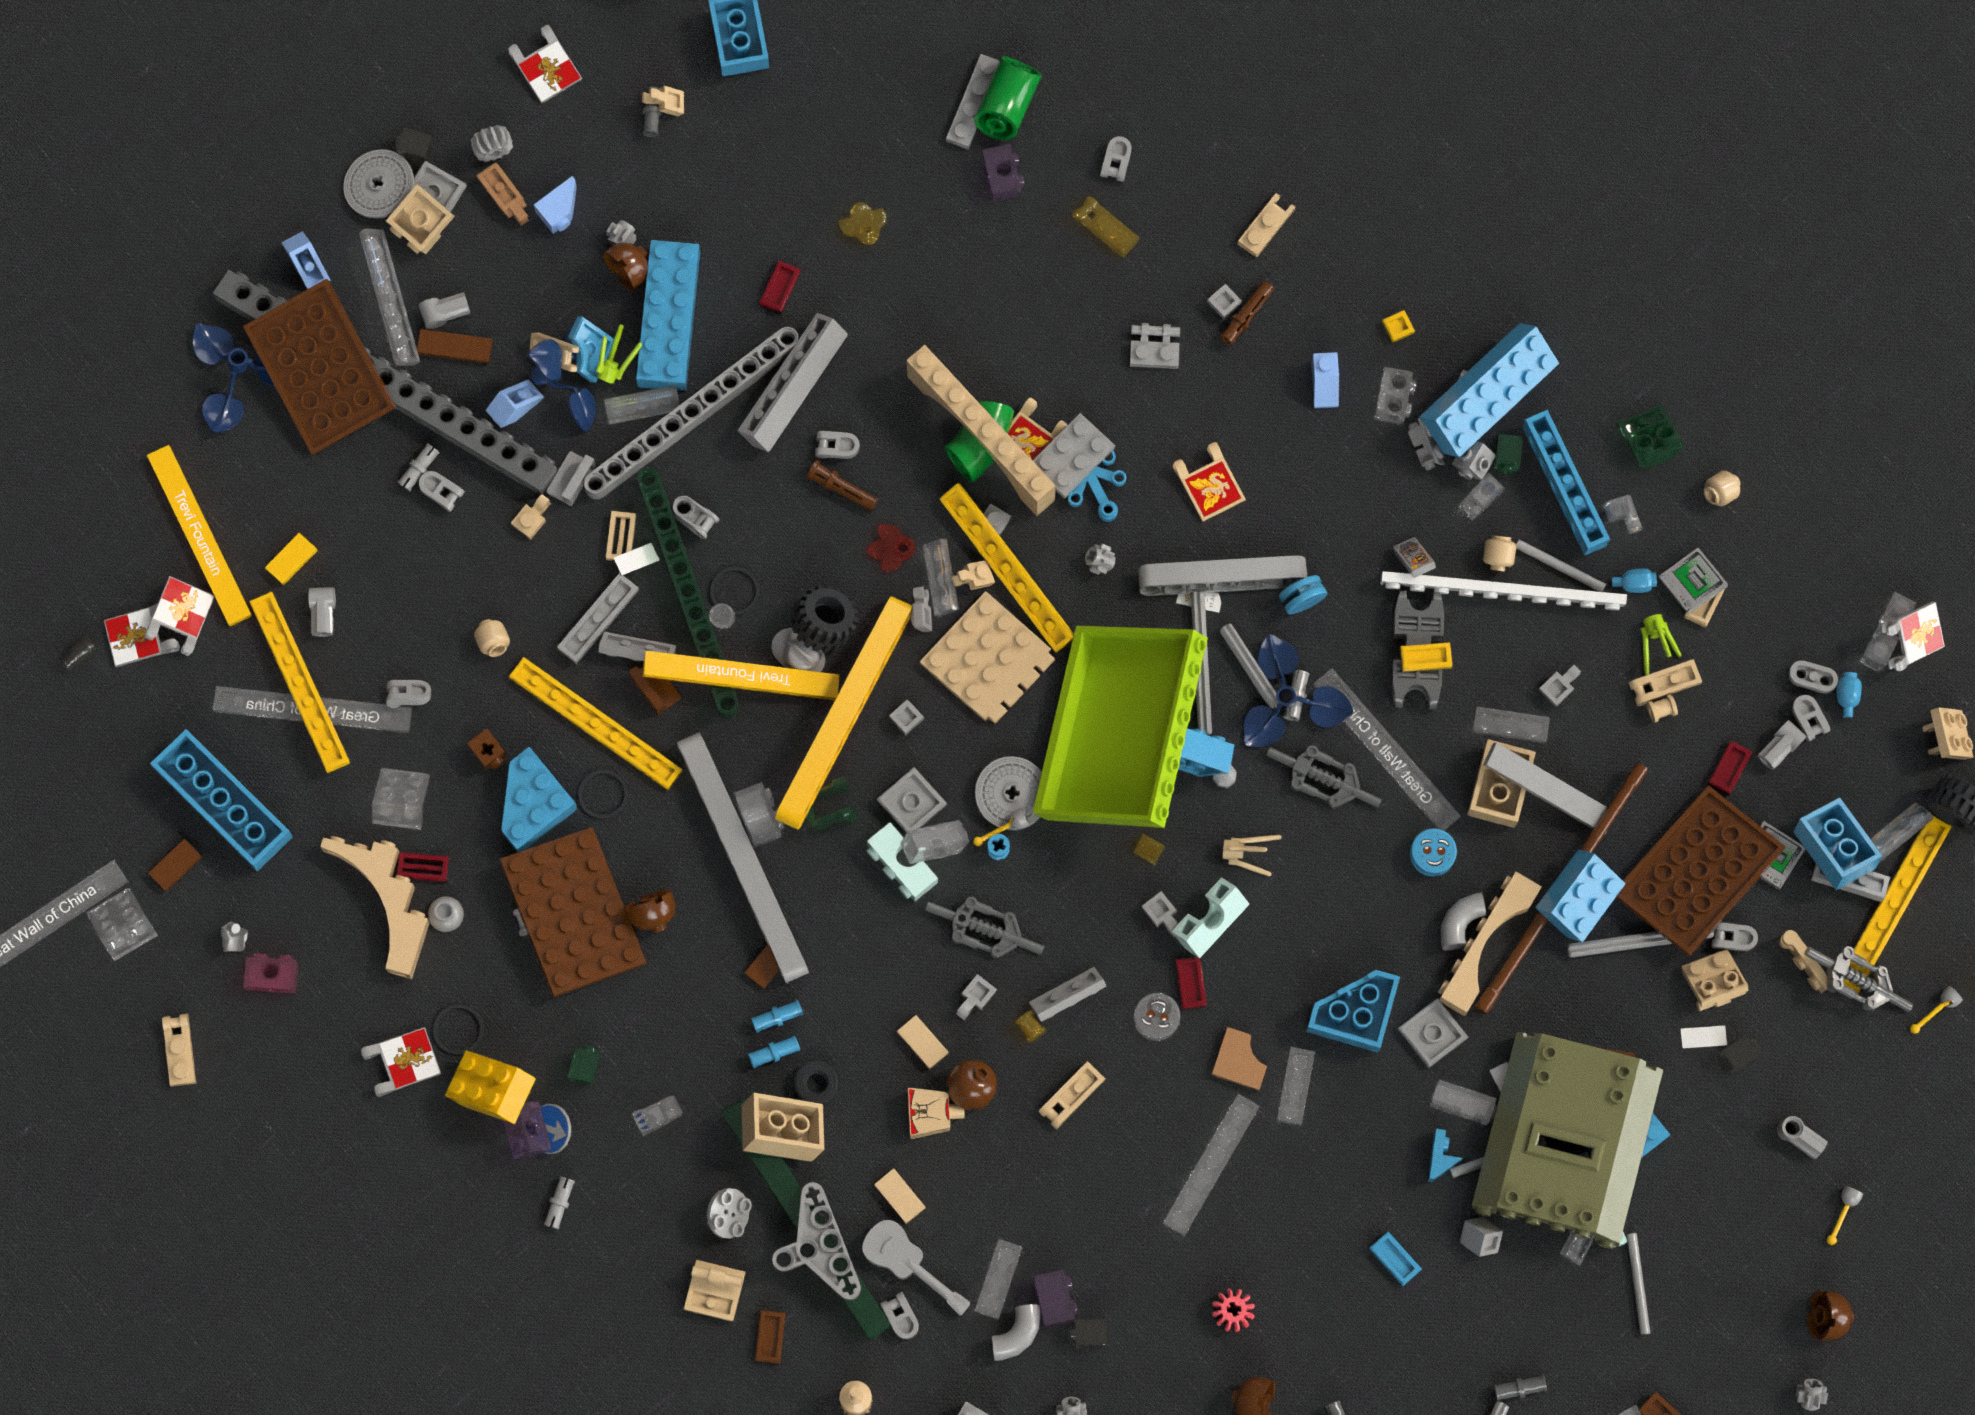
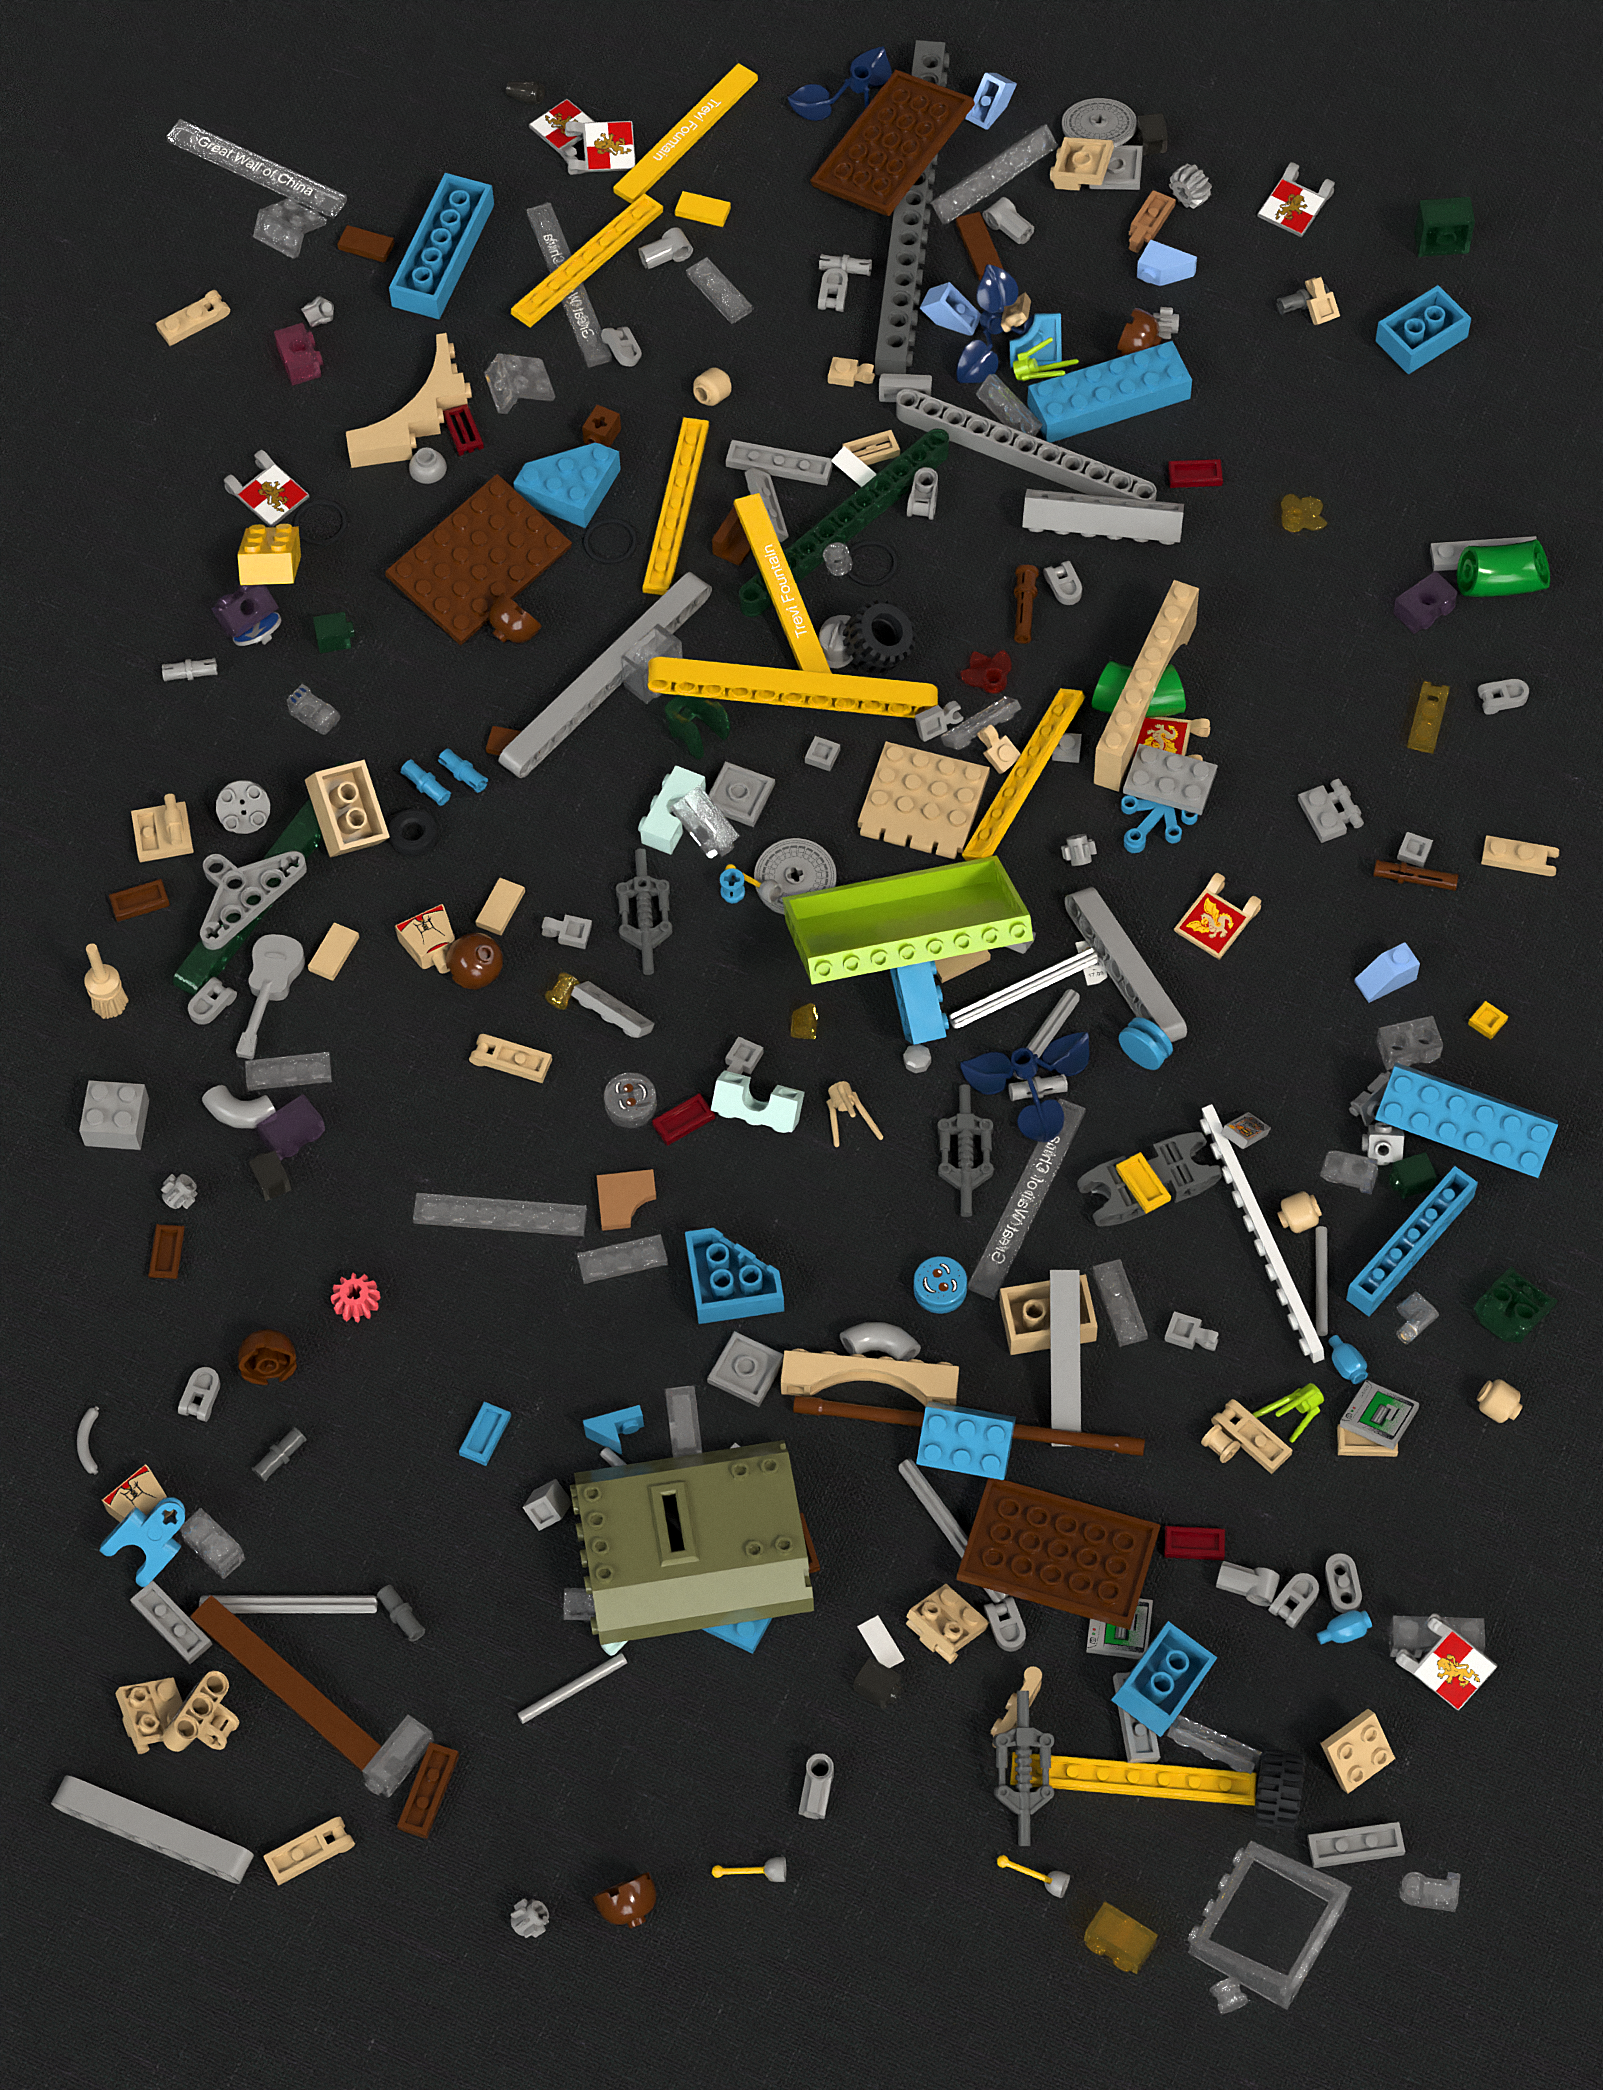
camera: 70 degrees right, 15 degrees down
(386, 585) = (719, 290): none -> clear plate

